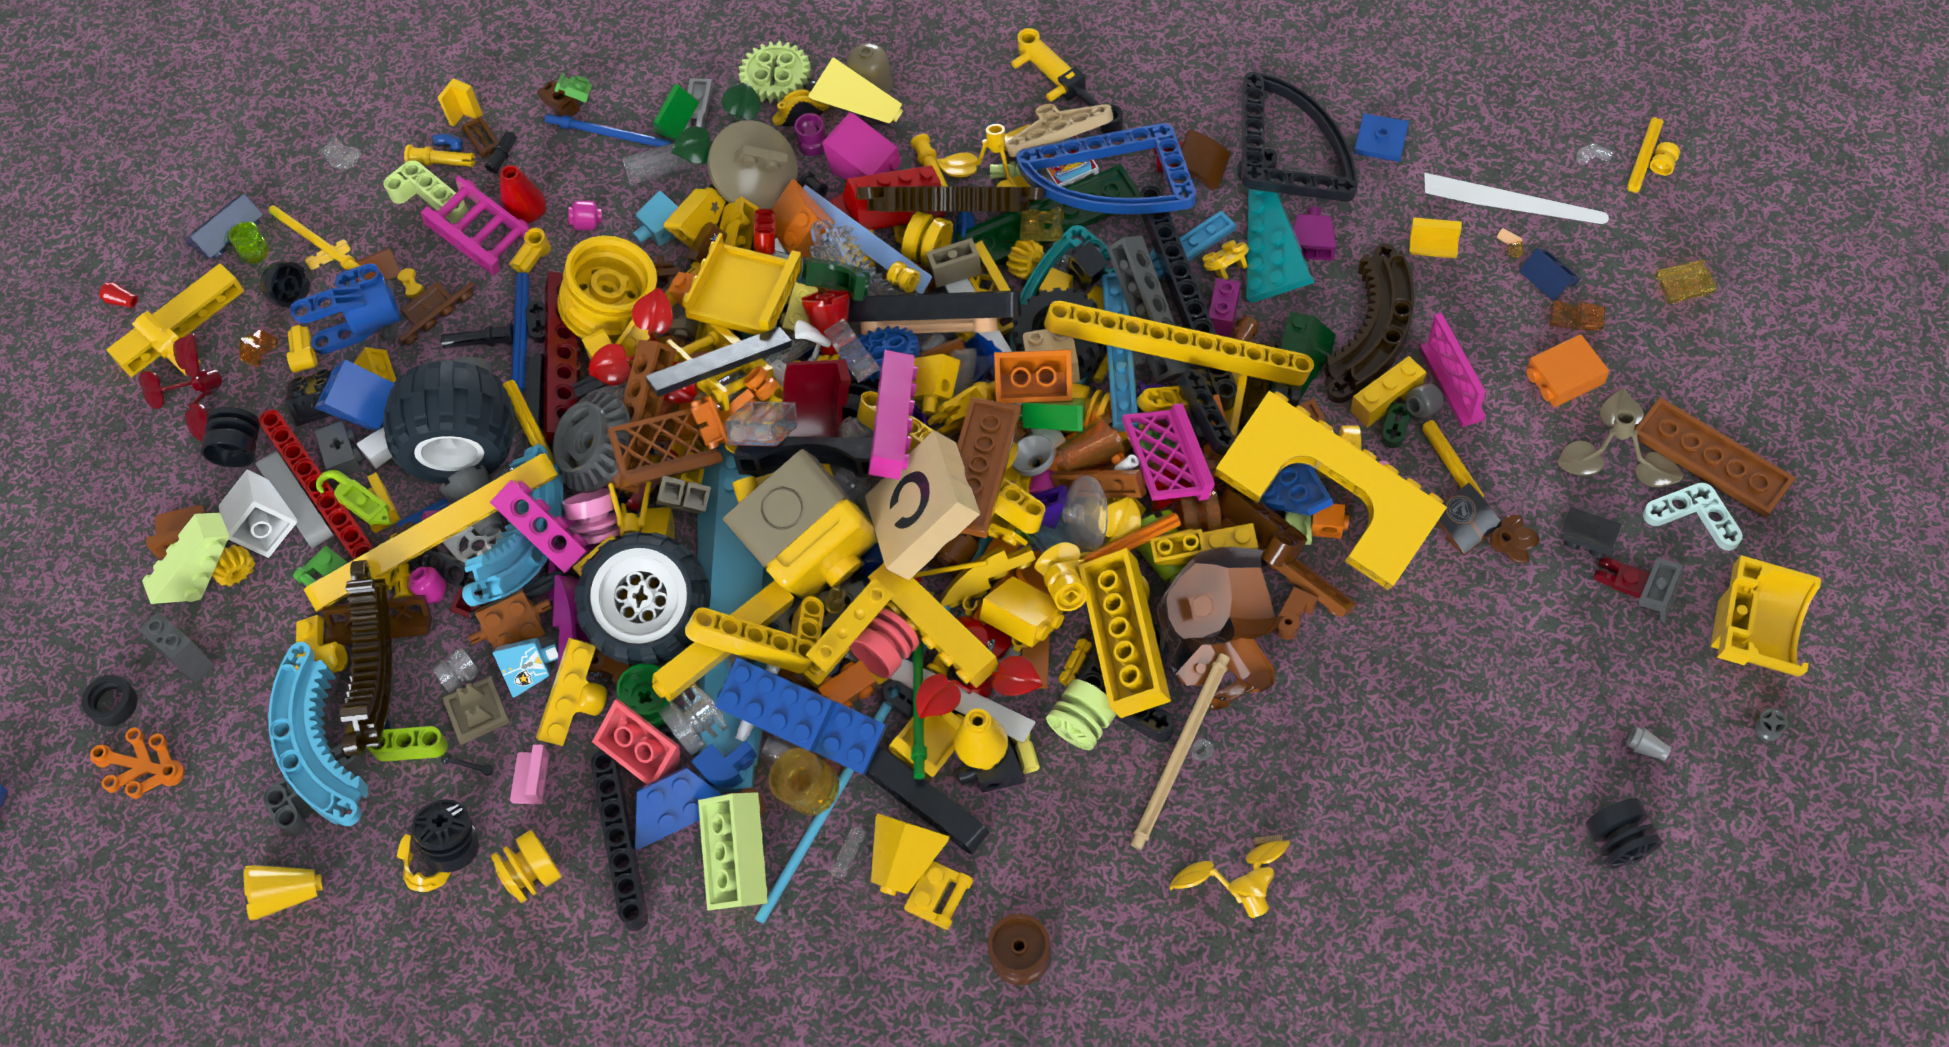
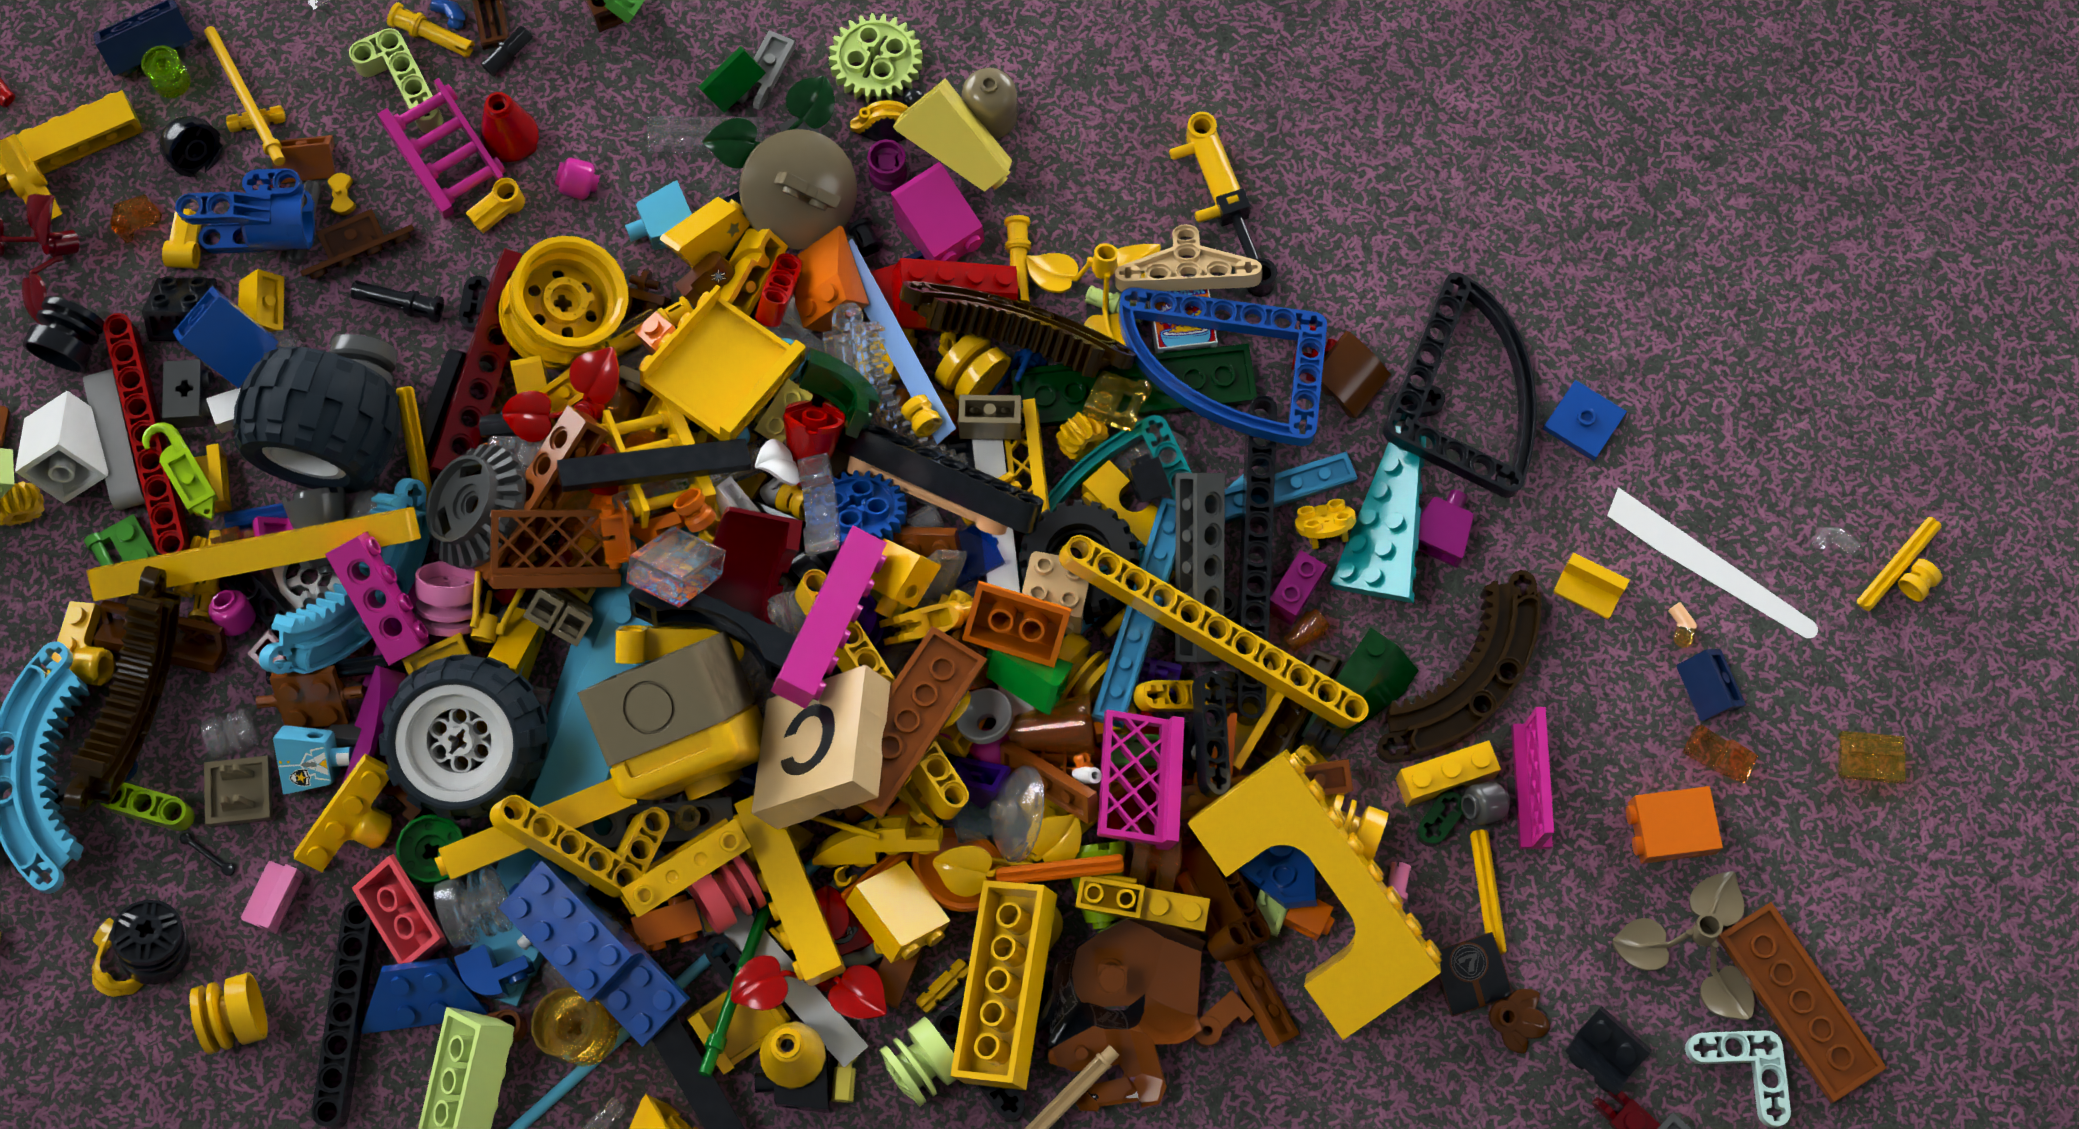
camera: 10 degrees right, 10 degrees up
(520, 328) = (448, 311): blue axle -> none
(568, 123) = (602, 38): blue bar -> none
(1065, 586) = (957, 903): yellow wheel -> none

